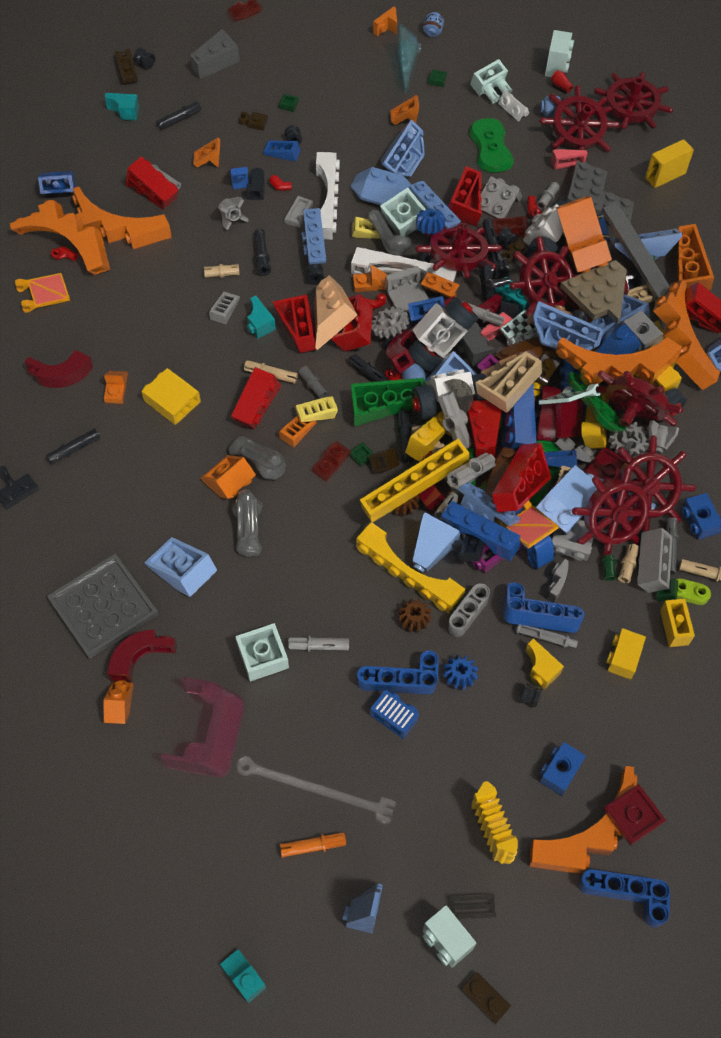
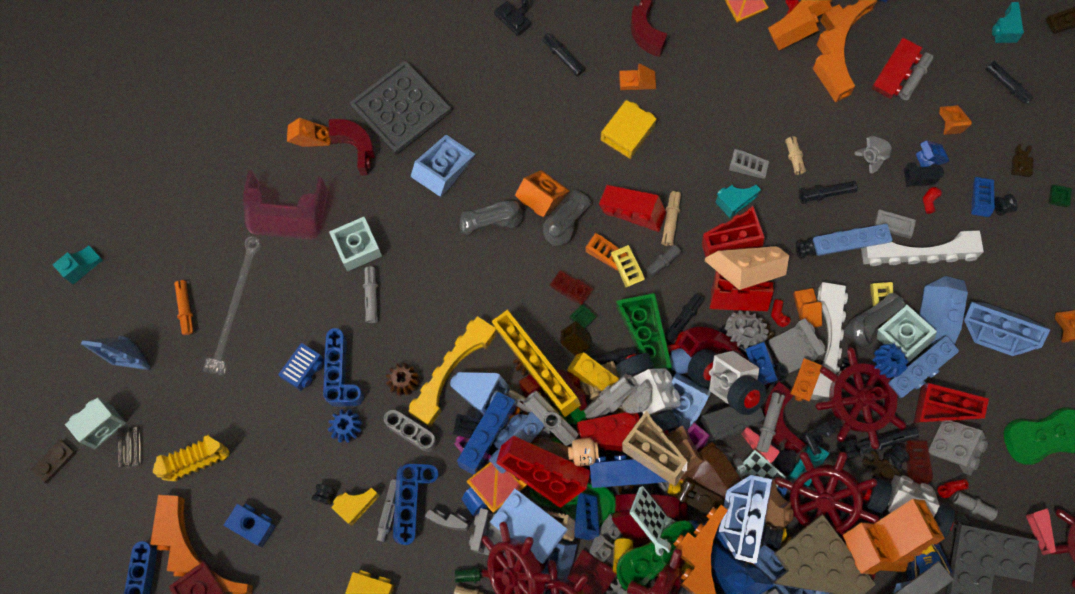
camera: 90 degrees right, 10 degrees up
(506, 443) = (583, 452): none -> light nougat head

